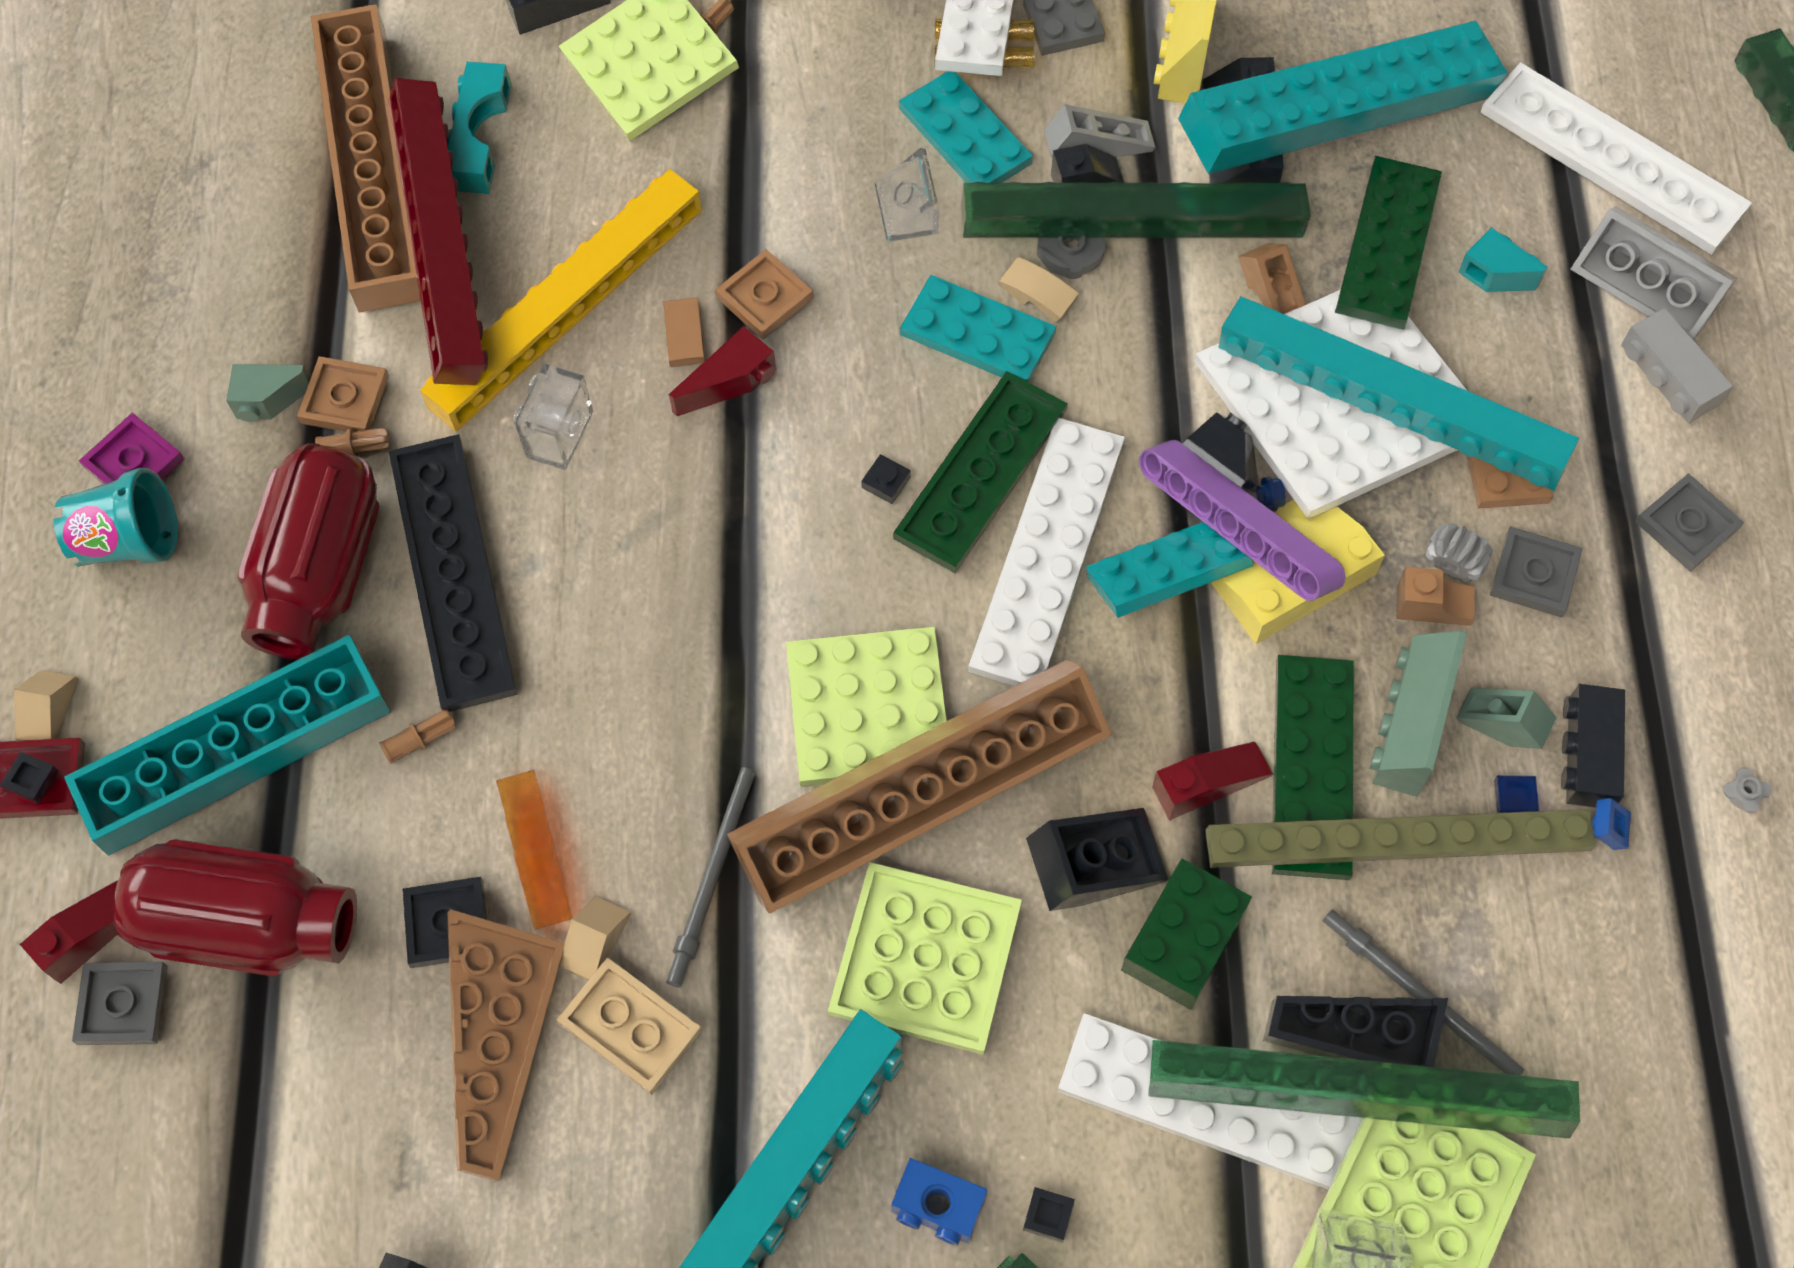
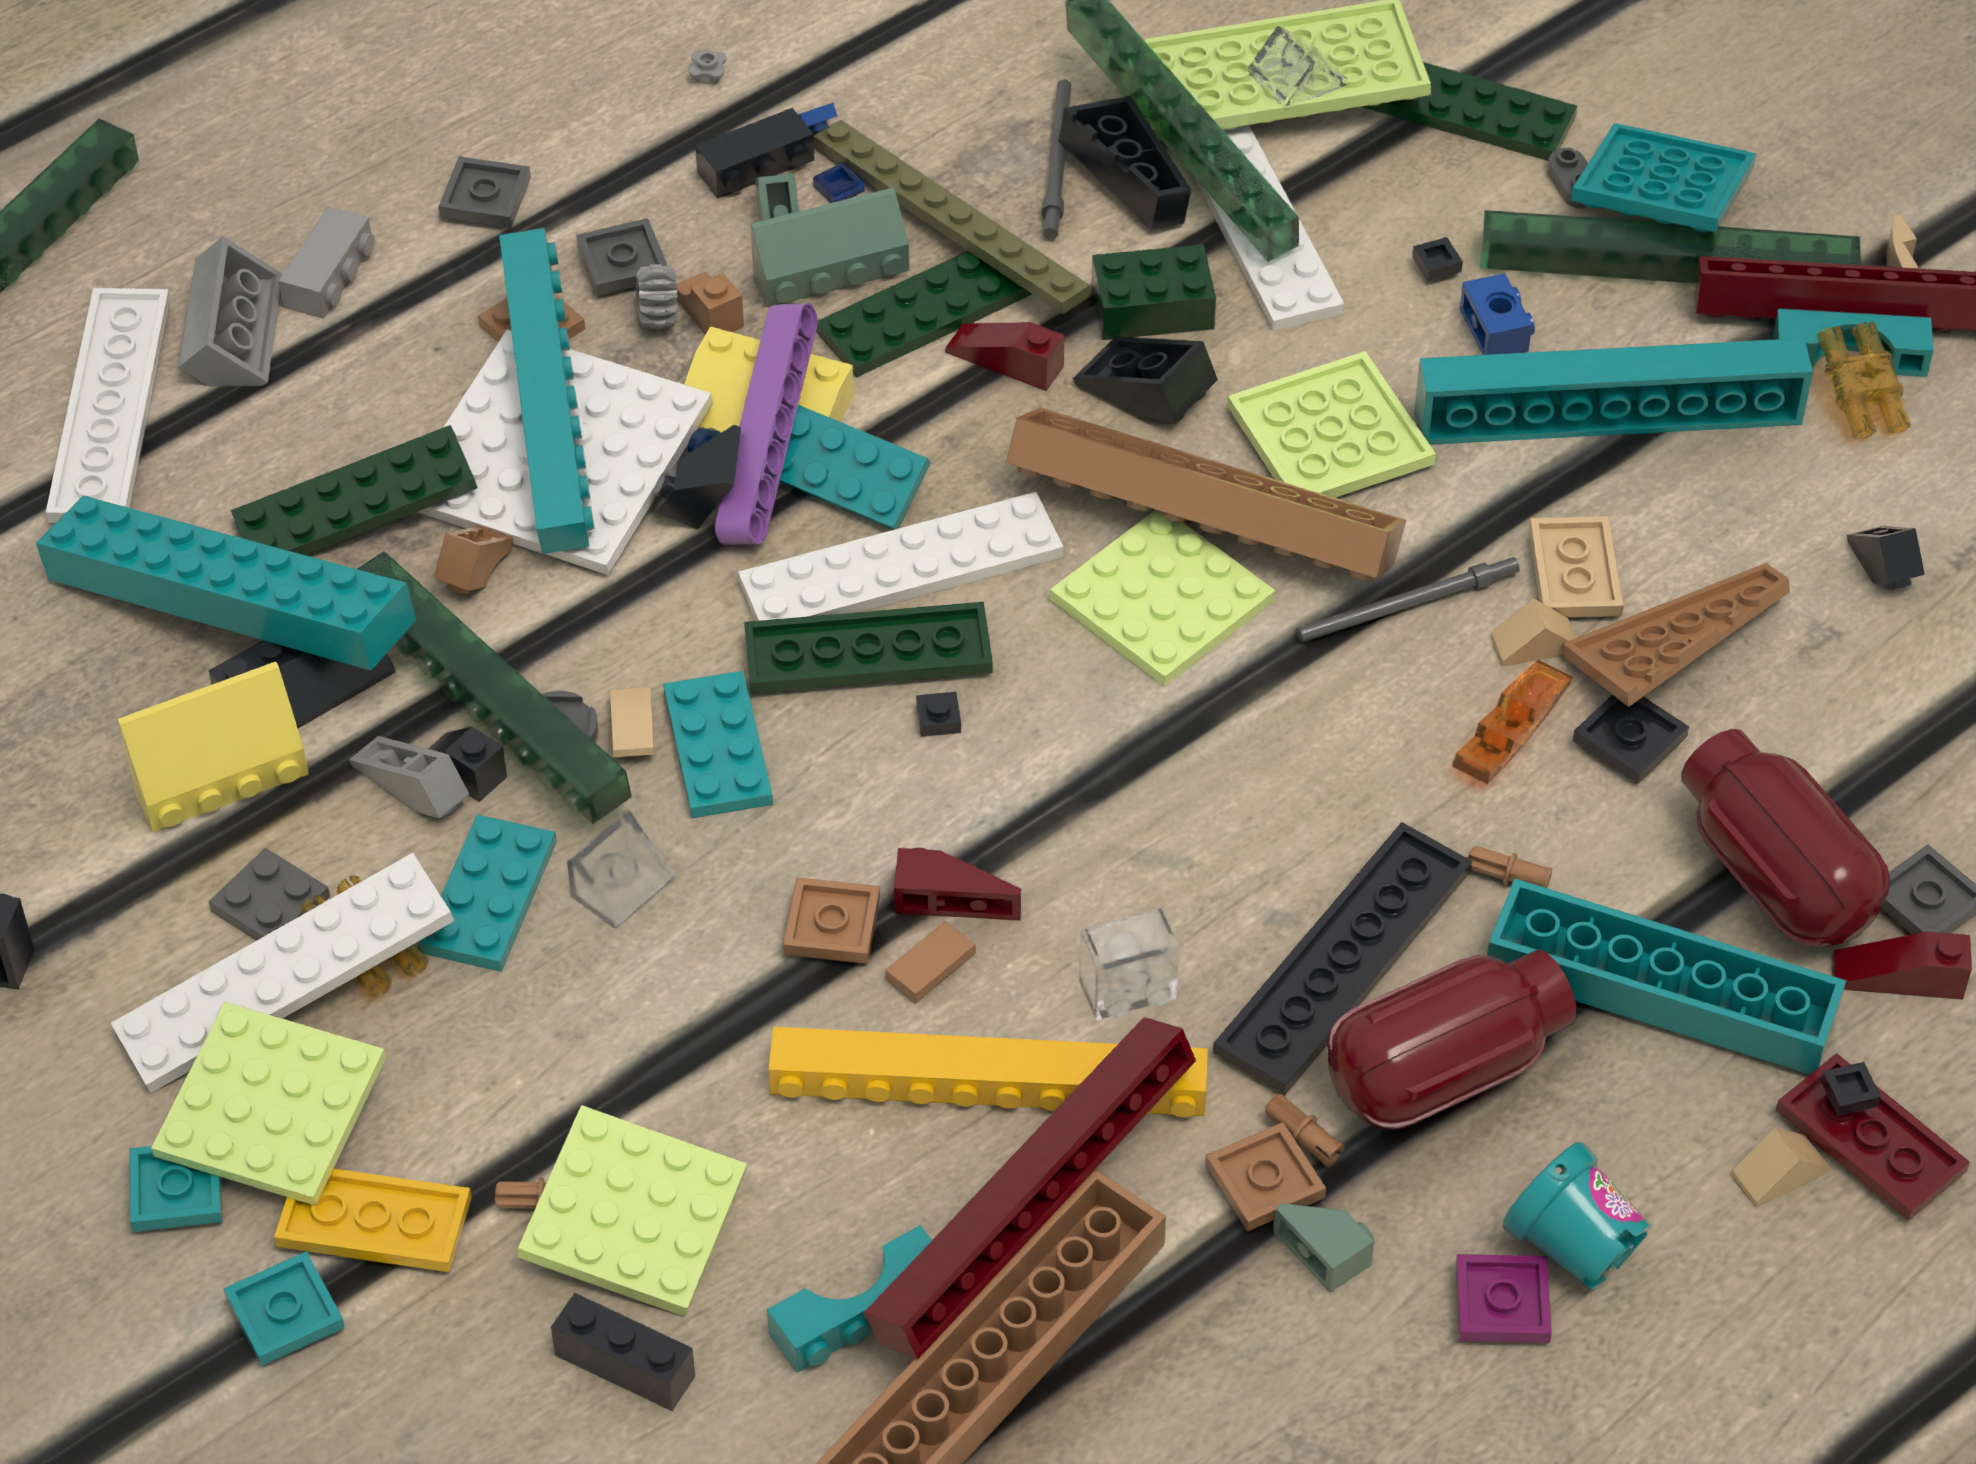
camera: 130 degrees left, 15 degrees down
(1501, 265) = (312, 421): teal slope -> none

